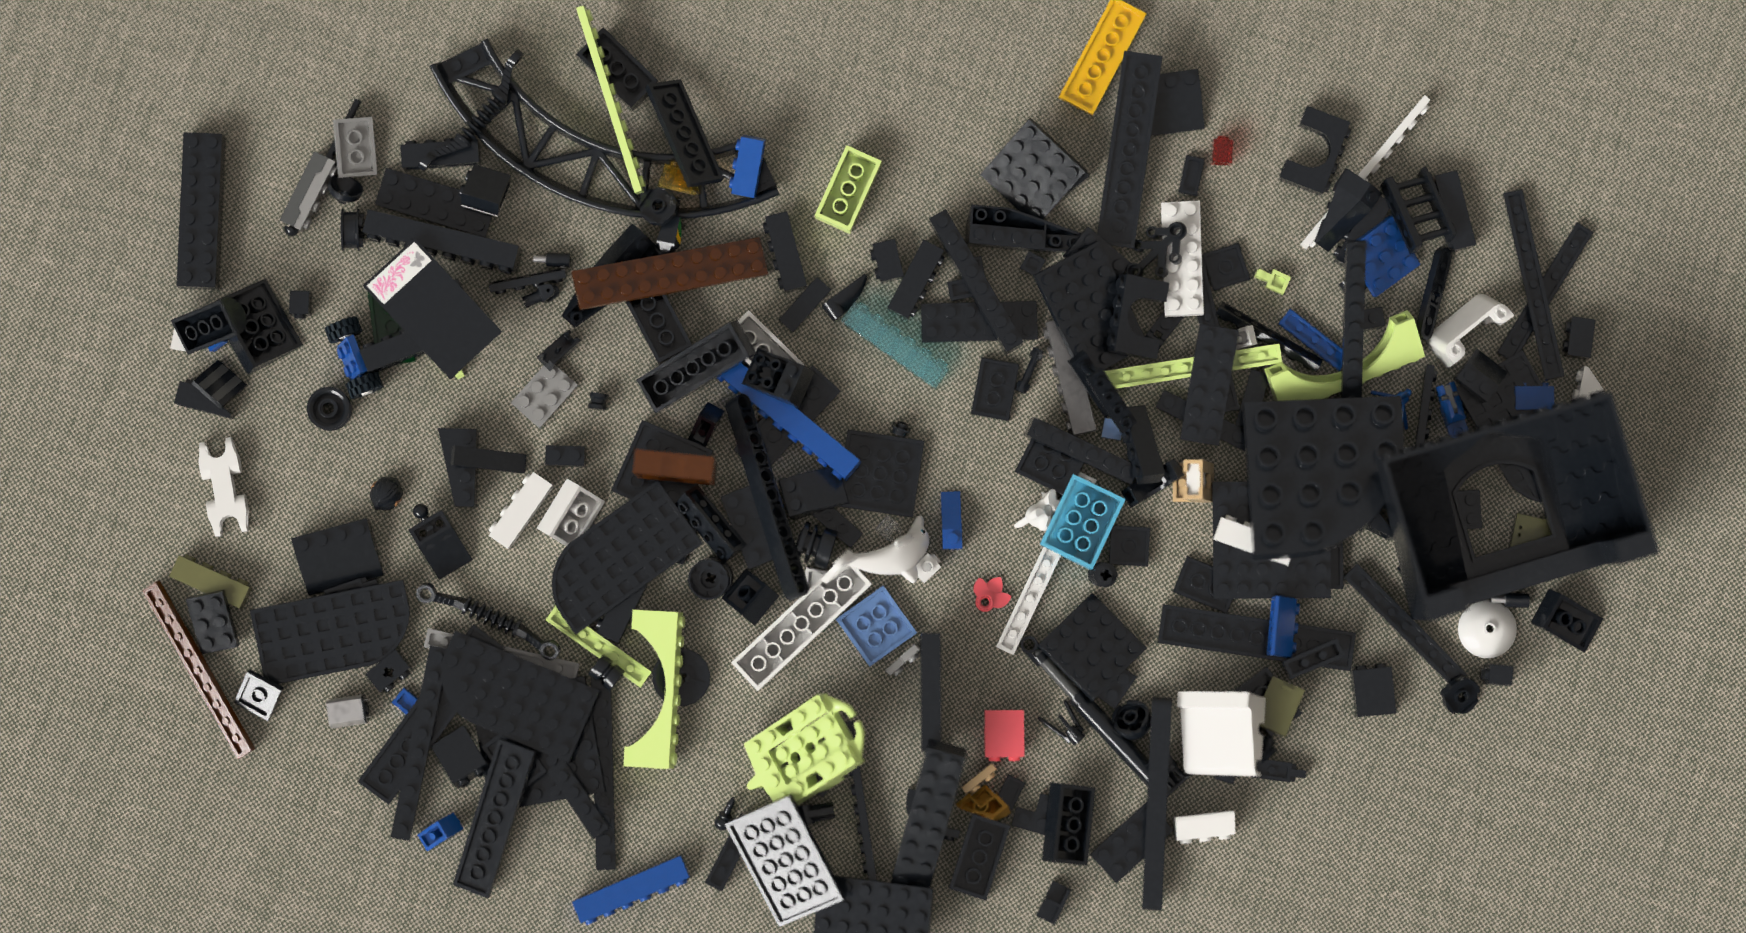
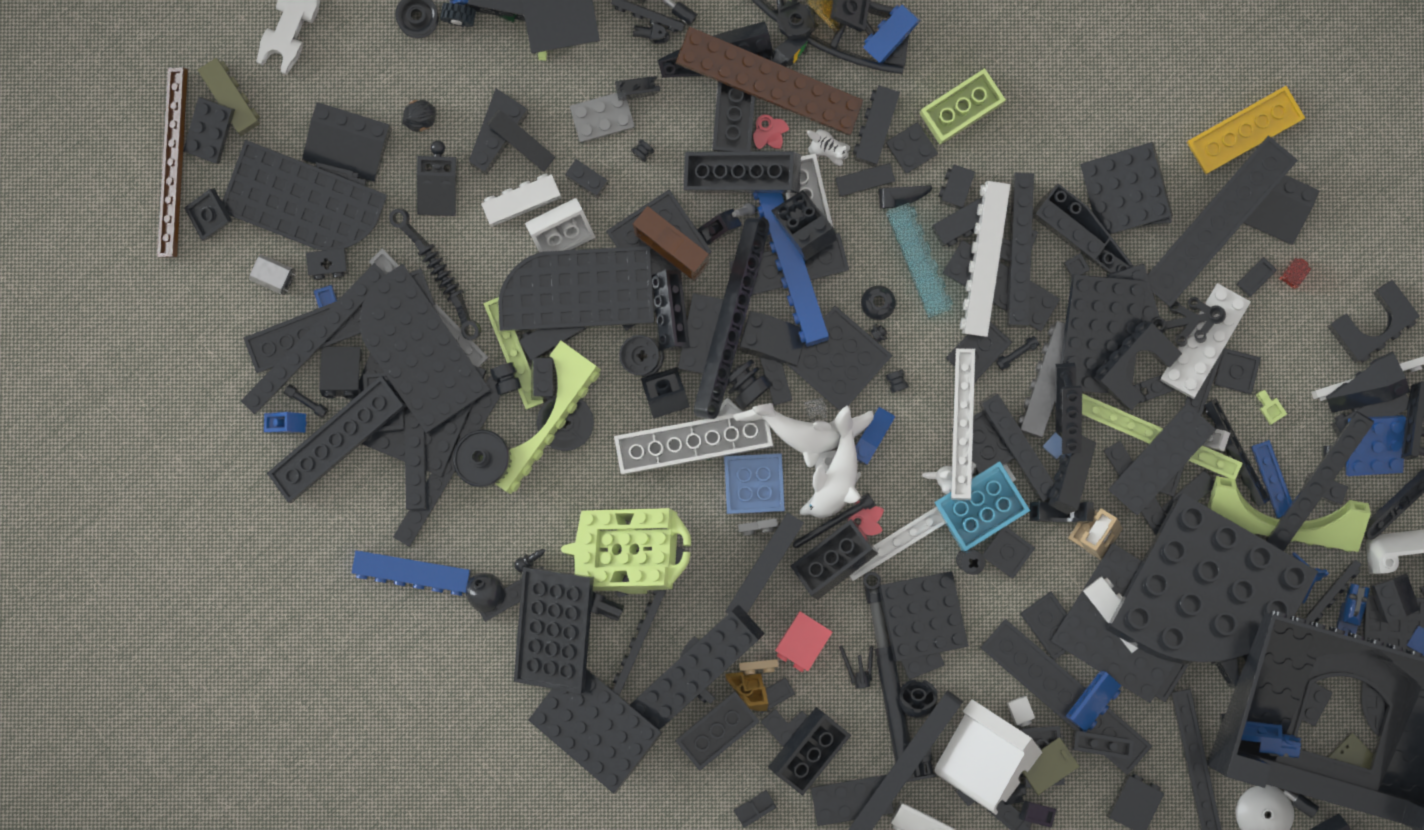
camera: 30 degrees right, 0 degrees up
(462, 801) = (292, 392): none -> black bar
(637, 652) = (541, 379): none -> black brick
(643, 750) = (494, 462): none -> black wheel
(700, 315) = (770, 135): none -> coral plate
(705, 866) = (485, 592): none -> black cylinder
(720, 394) = (748, 210): none -> light grey piece
(752, 296) = (827, 146): none -> white animal
(827, 252) = (911, 148): none -> black plate
(875, 410) = (871, 310): none -> black piece
(942, 460) = (897, 381): none -> black wheel
(948, 581) = (838, 484): none -> white animal
(951, 307) = (986, 258): none -> white brick
(981, 582) = (865, 503): none -> black piece
(985, 647) = (834, 559): none -> black brick
(1022, 462) = (963, 424): none -> white plate
(1226, 674) = (1021, 711): none -> white brick
(1295, 752) = (1037, 814): none -> black tile
(1451, 563) = (1272, 740): none -> blue plate

